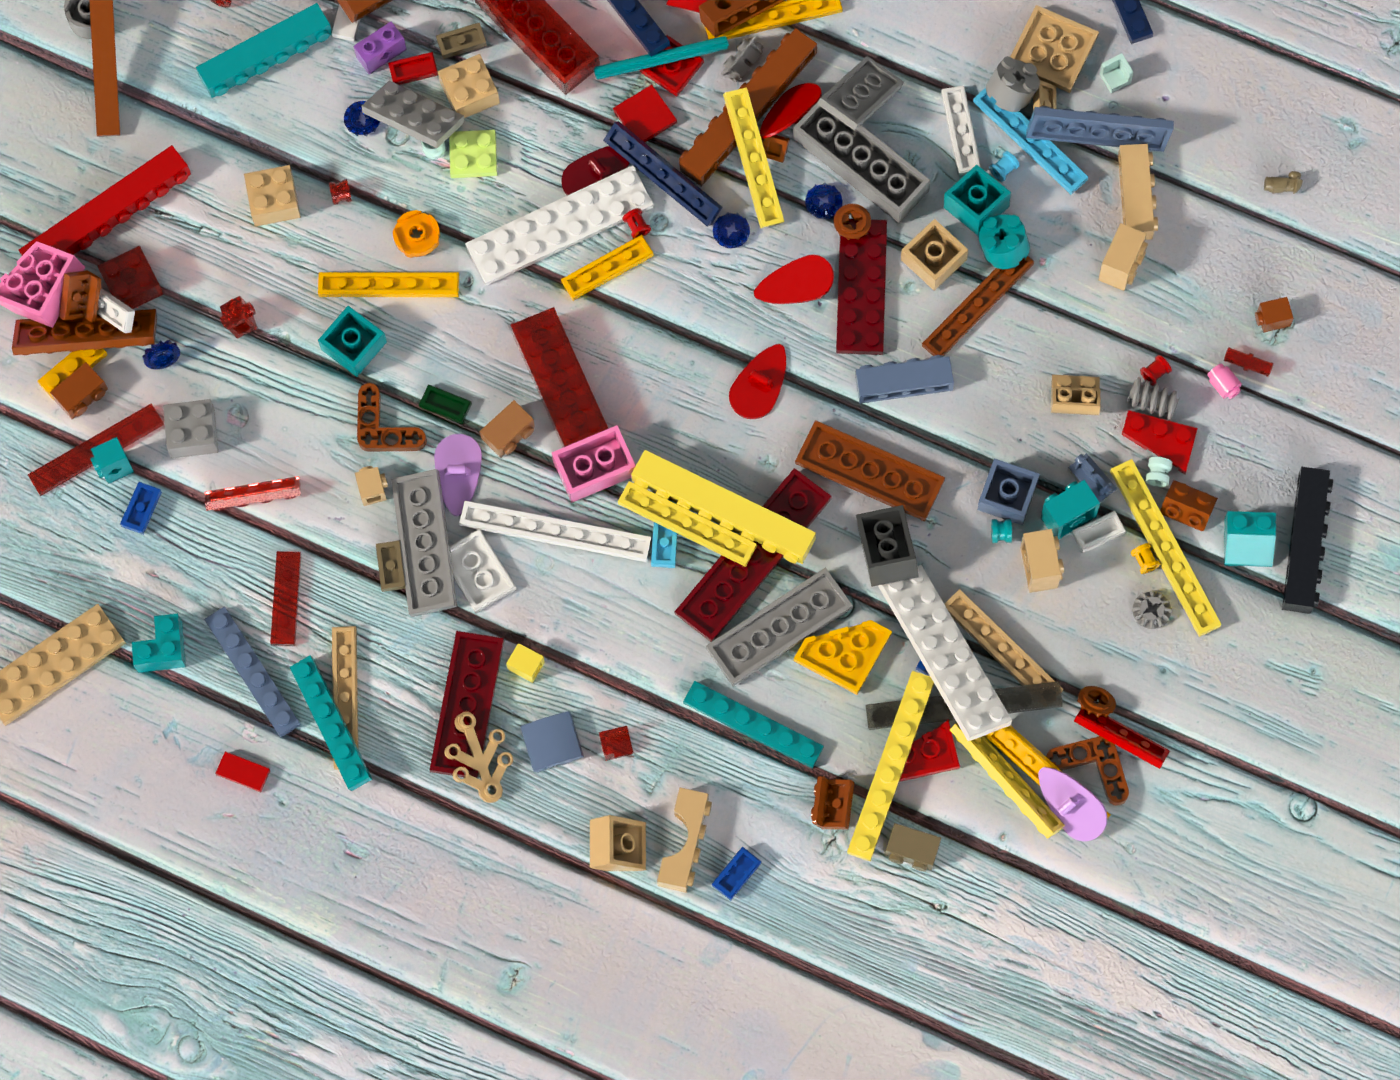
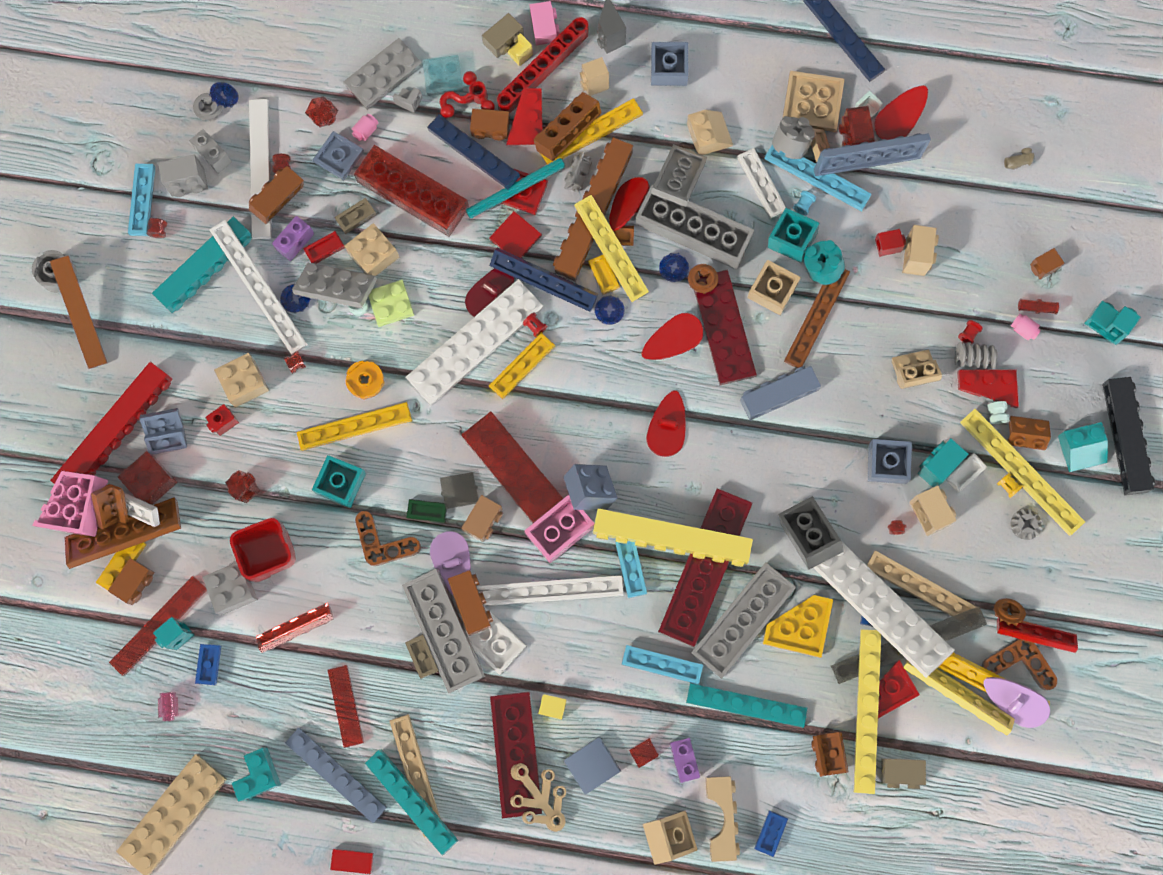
camera: 15 degrees left, 5 degrees up
(81, 541) = (168, 706): none -> clear pink brick
(163, 360) = (189, 534): clear blue gear -> none
(164, 230) = (163, 431): none -> sand blue slope
(235, 235) = (221, 420): none -> red brick
(242, 393) = (262, 549): none -> red piece
(322, 93) = (258, 287): none -> white tile
(371, 485) = (387, 594): tan brick -> none
(465, 517) = (470, 602): none -> dark orange brick
(489, 390) = (459, 490): none -> clear smoke piece
(643, 423) = (590, 487): none -> sand blue brick
(661, 763) = (684, 760): none -> medium lavender brick
(668, 651) = (662, 664): none -> medium azure plate
(687, 524) = (648, 558): light yellow plate -> none
(737, 187) = (603, 274): none -> yellow tile
(869, 470) = (775, 473): dark orange plate -> none
(915, 52) = (708, 131): none -> tan slope
(994, 571) = (896, 527): none -> clear red plate
(1001, 530) = (892, 493): teal wheel -> none
(1087, 469) = (946, 429): sand blue hinge -> none
(1092, 90) = (856, 126): none -> clear red brick
(1093, 239) = (890, 242): none -> red brick
(1136, 188) = (911, 193): tan brick -> none
(1155, 91) = (901, 114): none -> red shield
(1330, 402) = (1111, 323): none -> teal brick

